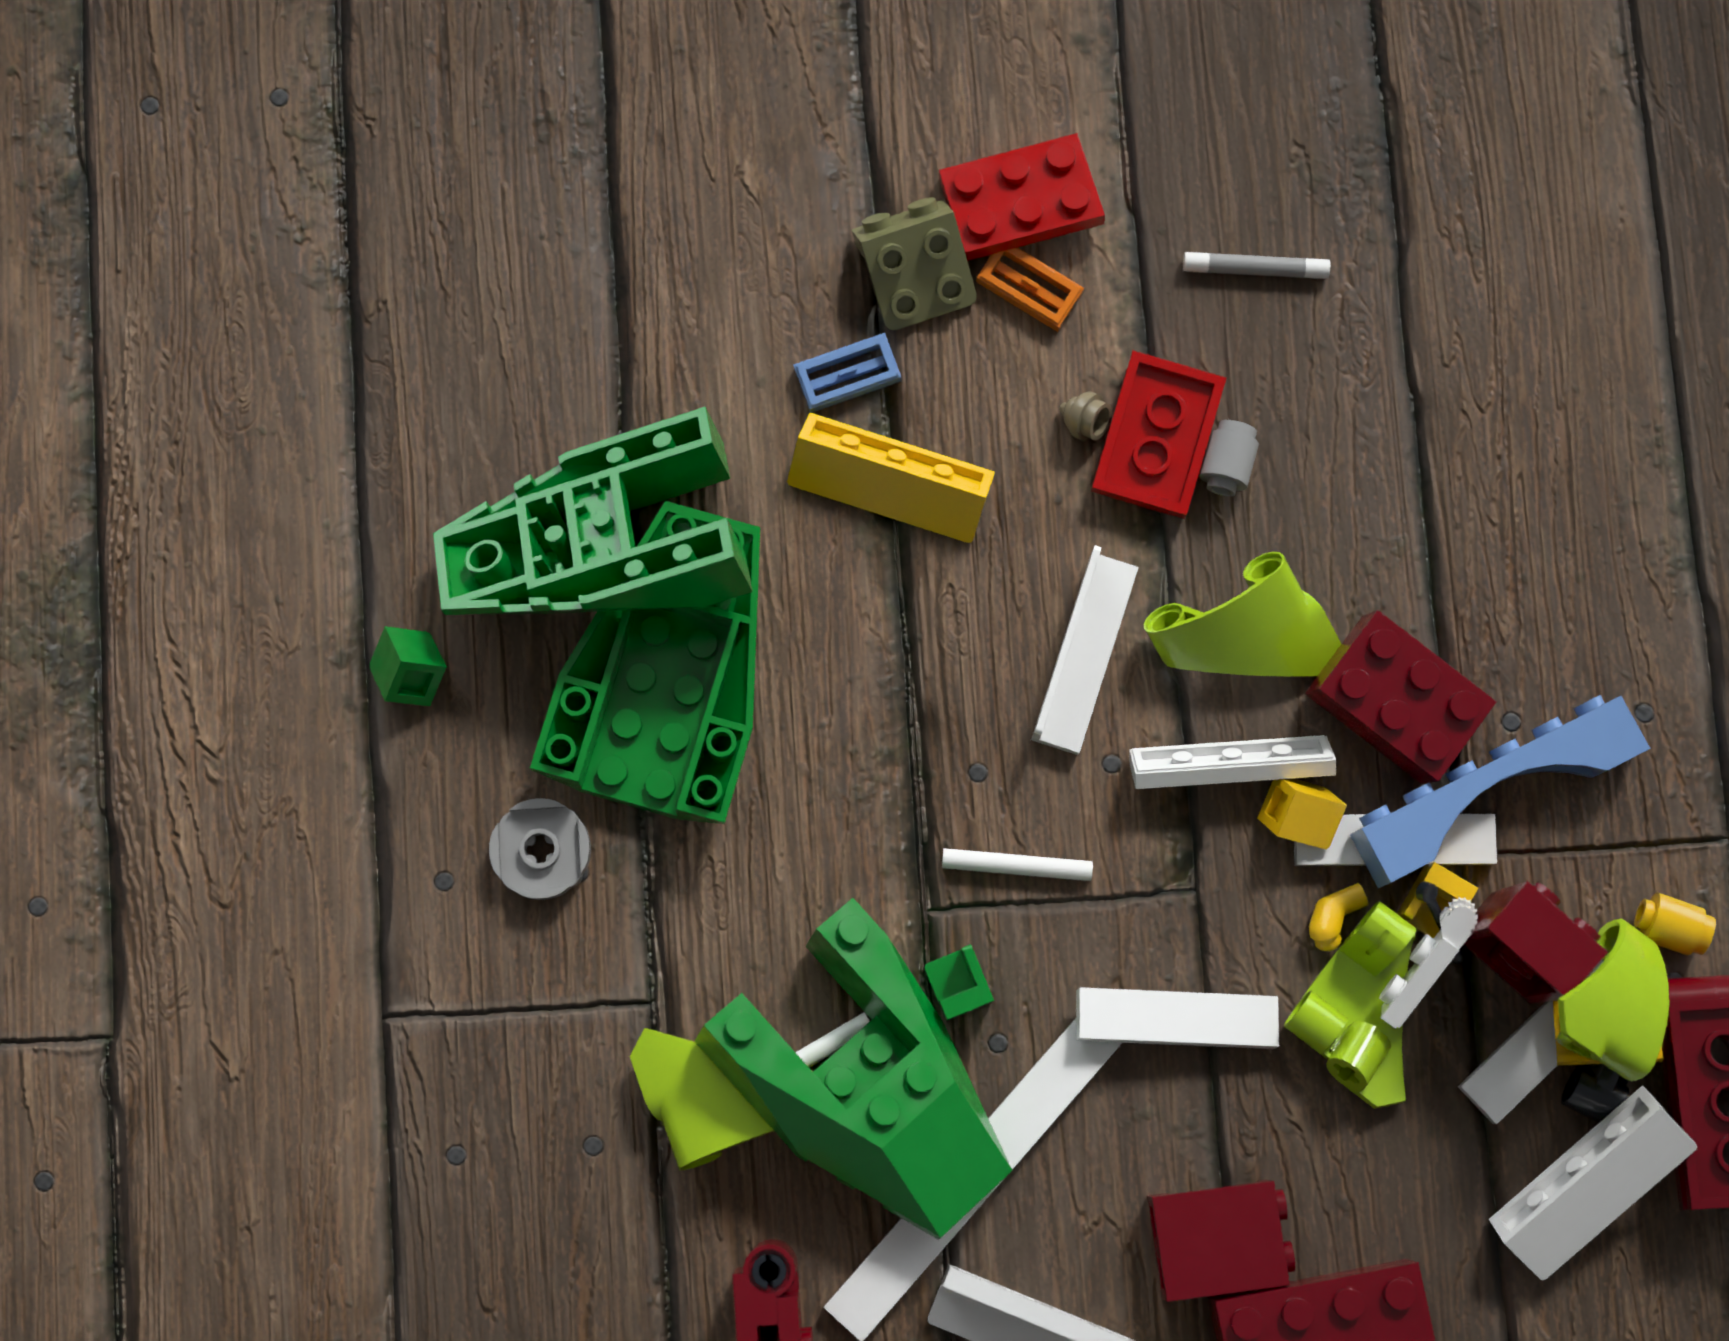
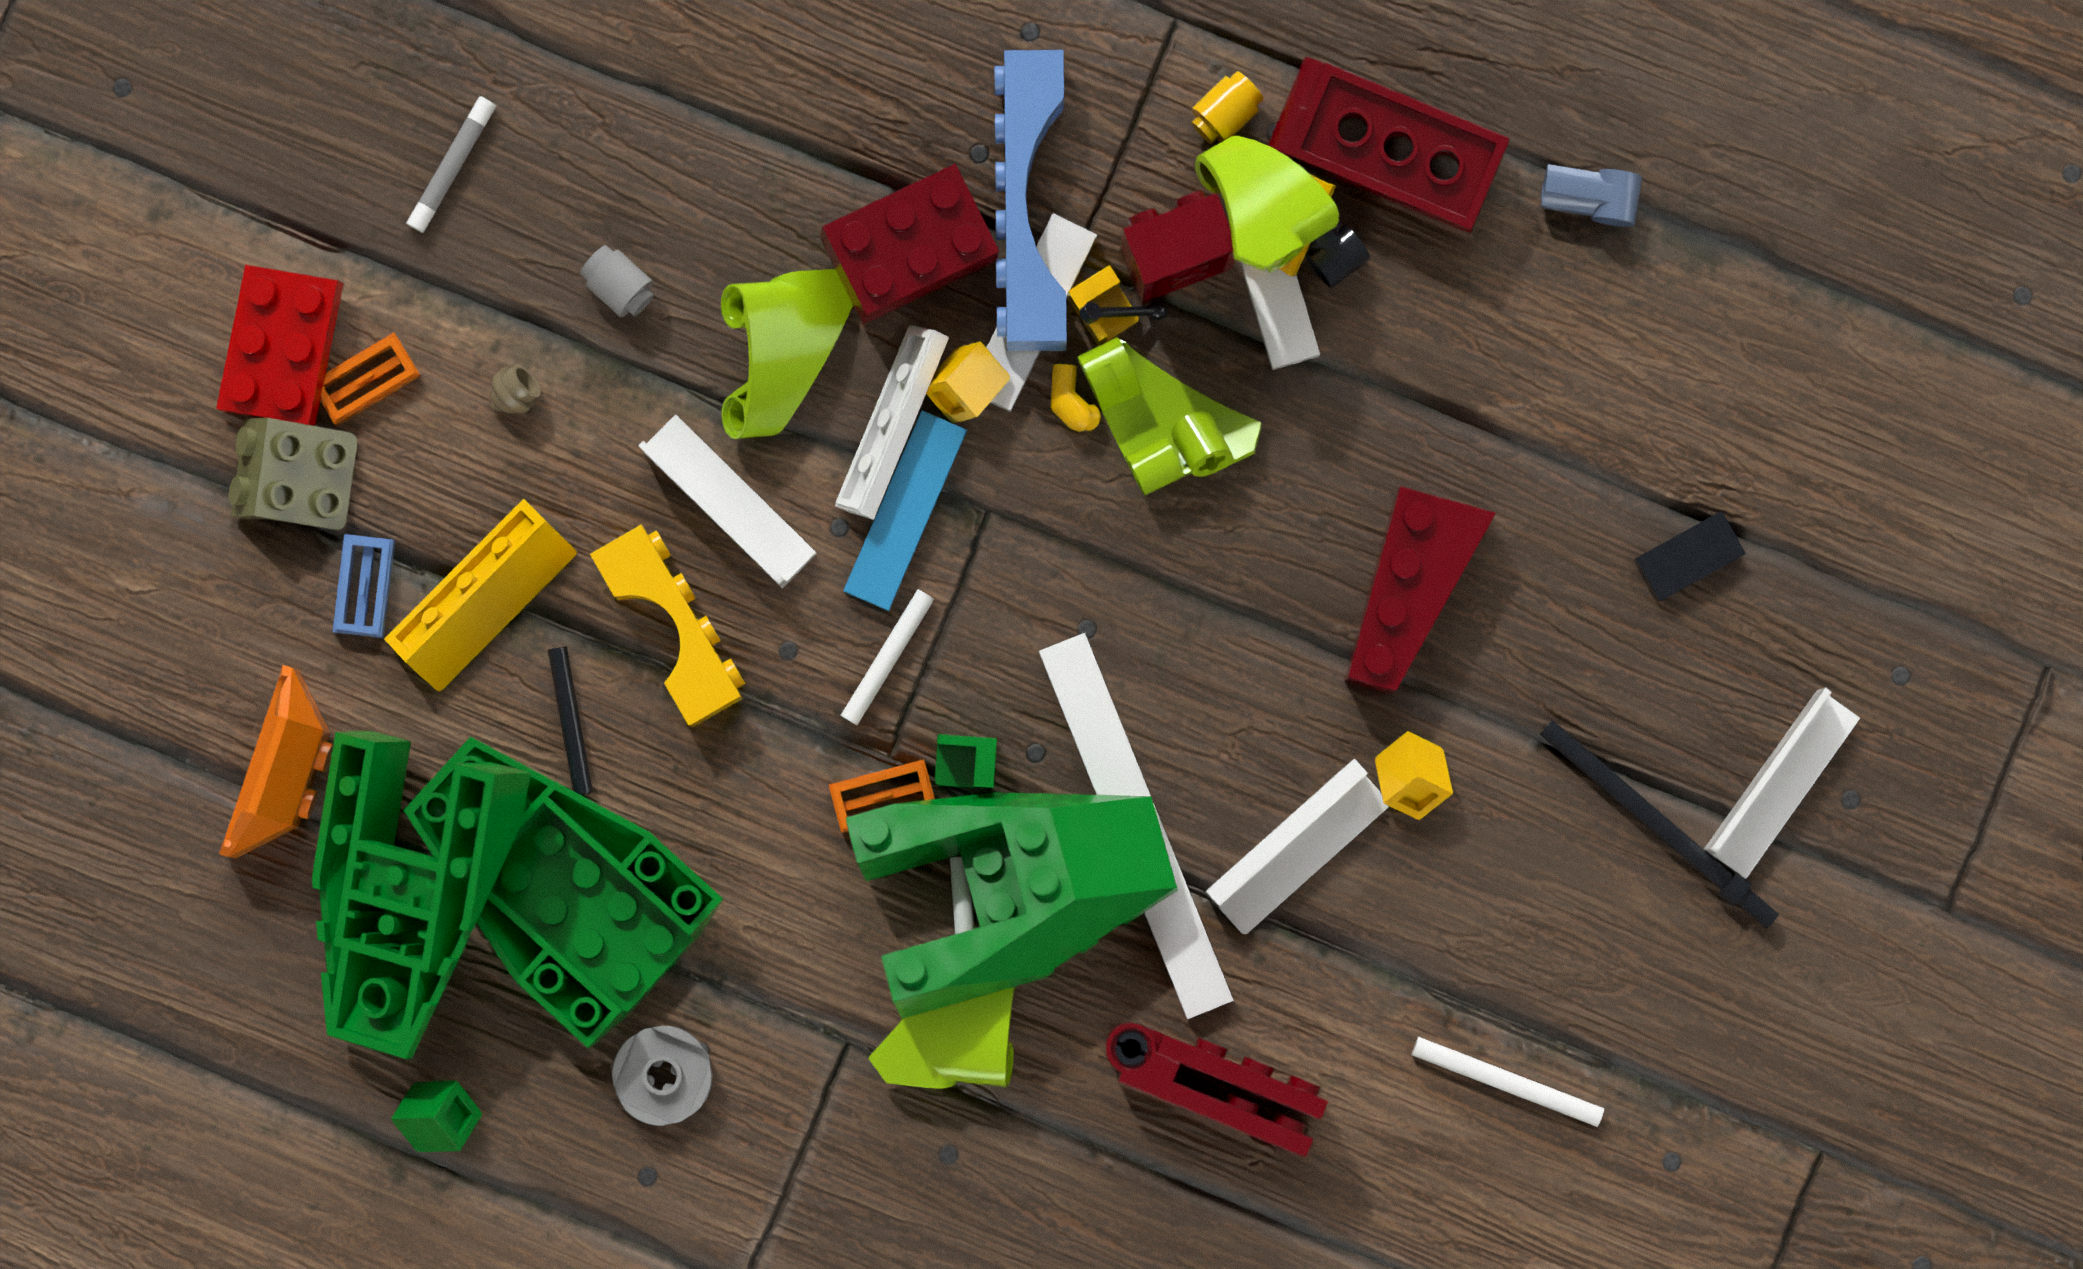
camera: 65 degrees left, 5 degrees up
(650, 379) = (281, 770): none -> orange wedge
(818, 610) = (570, 720): none -> black bar
(860, 890) = (842, 806): none -> orange tile
(912, 705) = (637, 570): none -> yellow arch
(1157, 814) = (905, 510): none -> dark azure tile
(1158, 434) = (563, 334): red plate -> none
(1177, 1018) = (1091, 585): white tile -> none
(1220, 1240) = (1299, 645): dark red panel -> none
(1430, 960) = (1150, 340): white hinge -> none
(1592, 1184) = (1409, 301): white panel -> none

